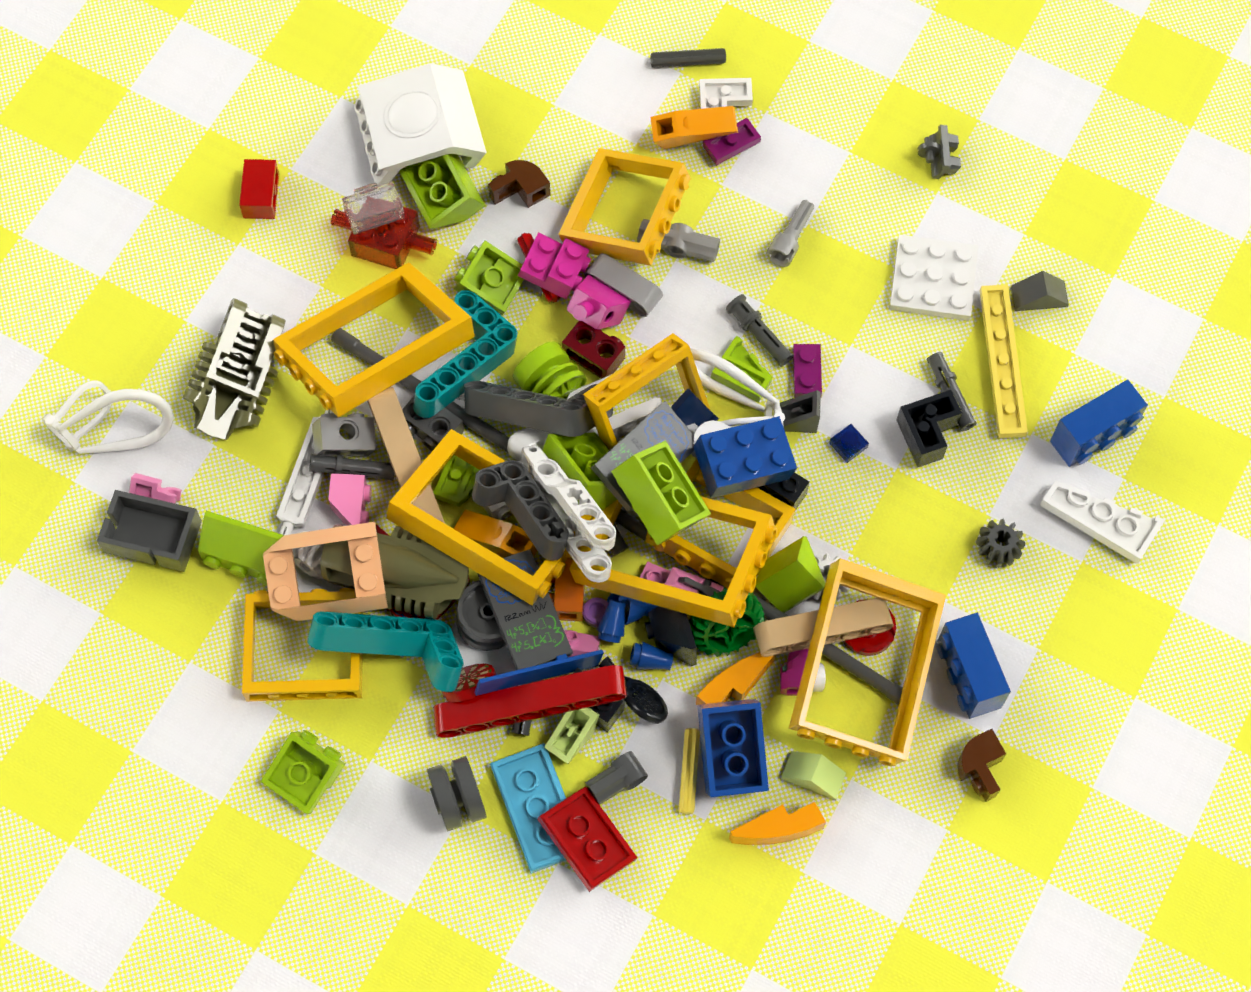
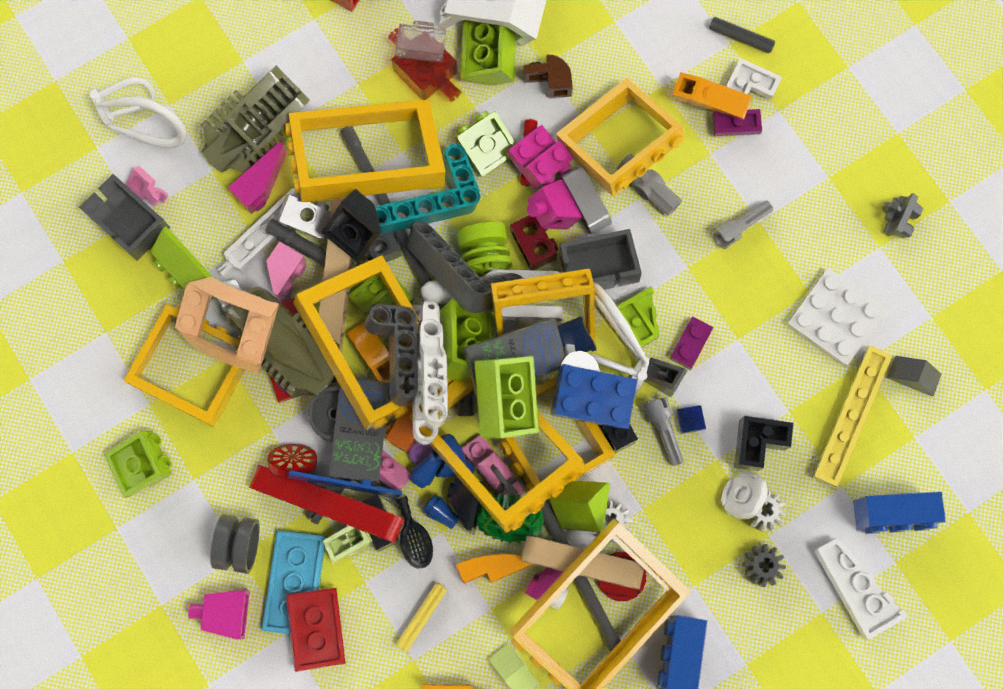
camera: 30 degrees right, 10 degrees up
(271, 433) = (257, 182): none -> dark pink slope
(392, 636) = (252, 396): teal beam -> none
(408, 413) = (354, 225): none -> black slope
(480, 874) = (223, 613): none -> dark pink torso
(623, 774) = (367, 593): dark grey piece -> none
(681, 315) = (608, 256): none -> dark grey piece
(733, 747) = (459, 621): blue brick -> none
(752, 322) = (670, 281): dark grey pin -> none
(815, 451) = (660, 414): none -> light grey piece
(938, 364) = (797, 408): dark grey pin -> none
(943, 484) = (744, 495): none -> white tile
(960, 490) = (773, 510): none -> white gear

